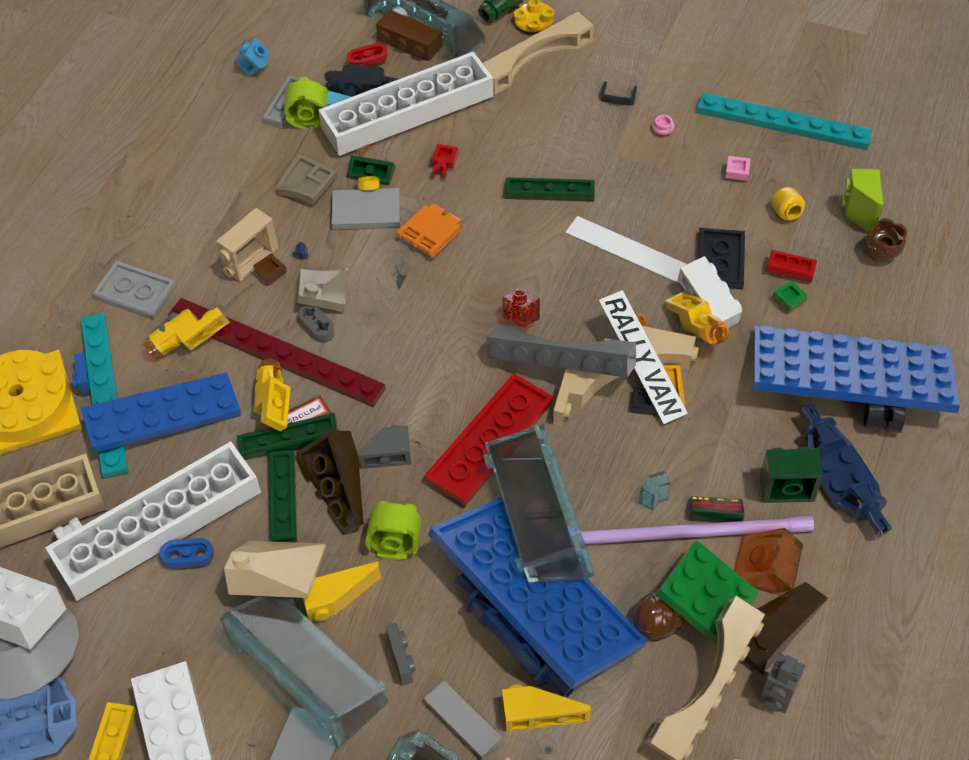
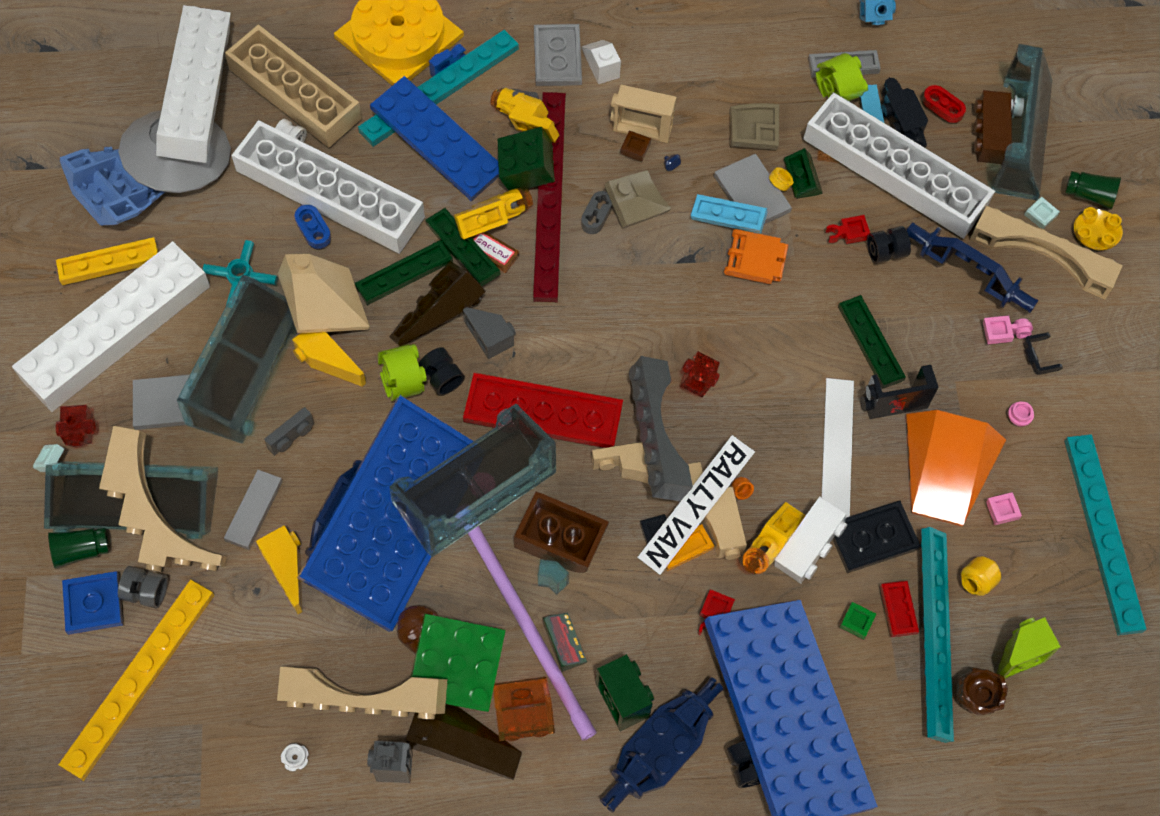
camera: 60 degrees right, 10 degrees up
(166, 256) = (602, 60): none -> white slope
(199, 627) = (240, 266): none -> teal bar
(235, 348) = (526, 159): none -> dark green brick
(380, 229) = (729, 214): none -> medium azure plate
(415, 492) = (441, 371): none -> black wheel
(474, 139) = (893, 244): none -> black wheel
(499, 42) = (1042, 213): none -> light aqua tile
(541, 83) = (984, 264): none -> dark blue plate
(587, 105) = (1001, 330): none -> bright pink plate
(615, 173) = (900, 401): none -> black panel
(619, 466) = (560, 533): none -> reddish brown brick
(681, 186) = (948, 463): none -> orange wedge
(740, 386) = (715, 605): none -> red plate
(830, 254) = (937, 636): none -> teal plate

